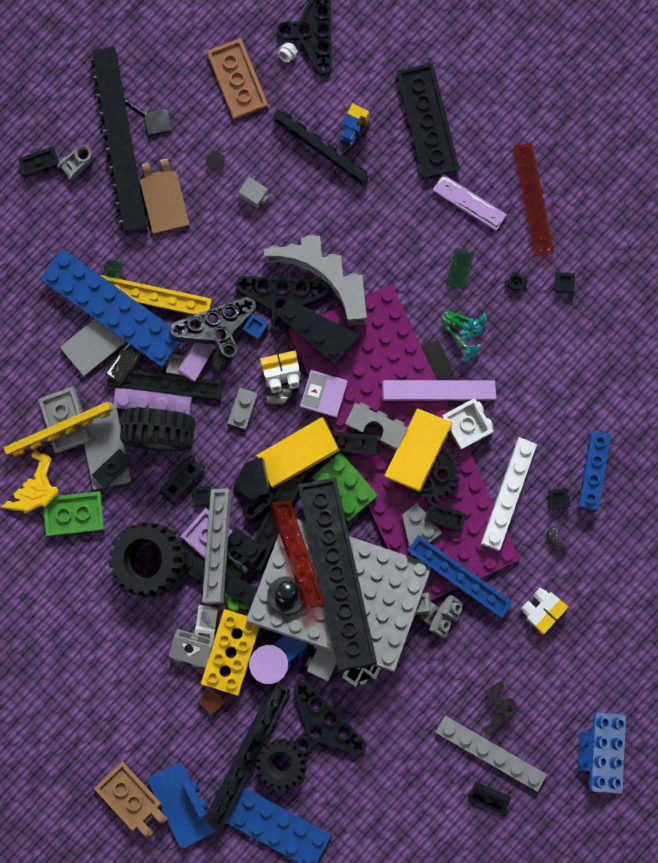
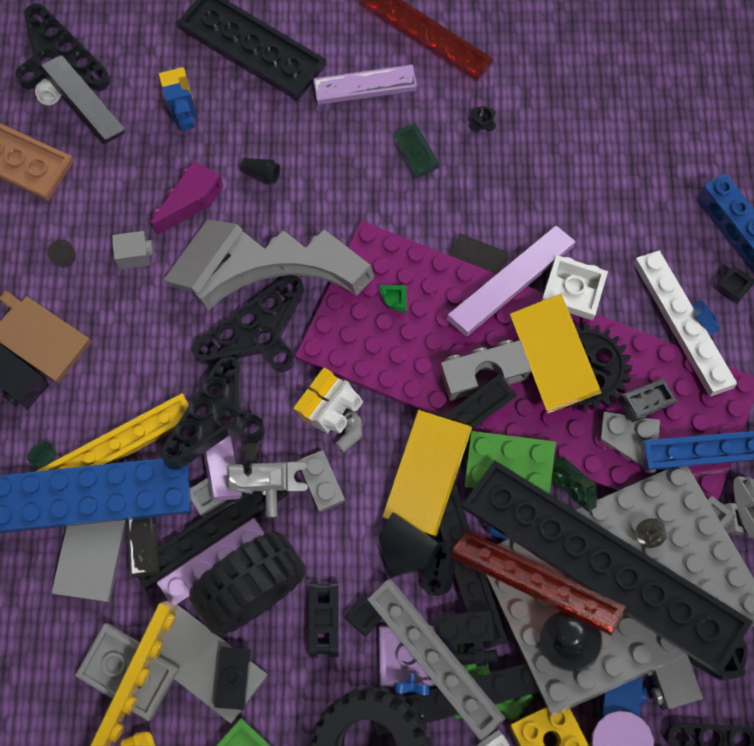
camera: 40 degrees left, 10 degrees down
(197, 553) = (412, 686): none -> blue piece
(214, 385) = (266, 478): none -> light grey piece
(255, 326) = (256, 382): blue plate -> none
(287, 230) = (203, 255): none -> light grey tile
(302, 75) = (82, 99): none -> tile
(314, 187) = (191, 195): none -> magenta slope
(315, 142) = (164, 151): black plate -> none
(320, 333) = (330, 326): black wedge -> none
(323, 393) = (396, 386): lavender tile -> none
(364, 205) = (261, 169): none -> black cone
(365, 528) = (575, 483): none -> clear green plate
(367, 344) = (394, 297): none -> green tile
(375, 581) = (651, 533): none -> clear smoke tile
(453, 321) = (458, 202): plant -> none
(522, 502) = (706, 317): none -> blue tile
(564, 282) = (530, 79): black plate -> none

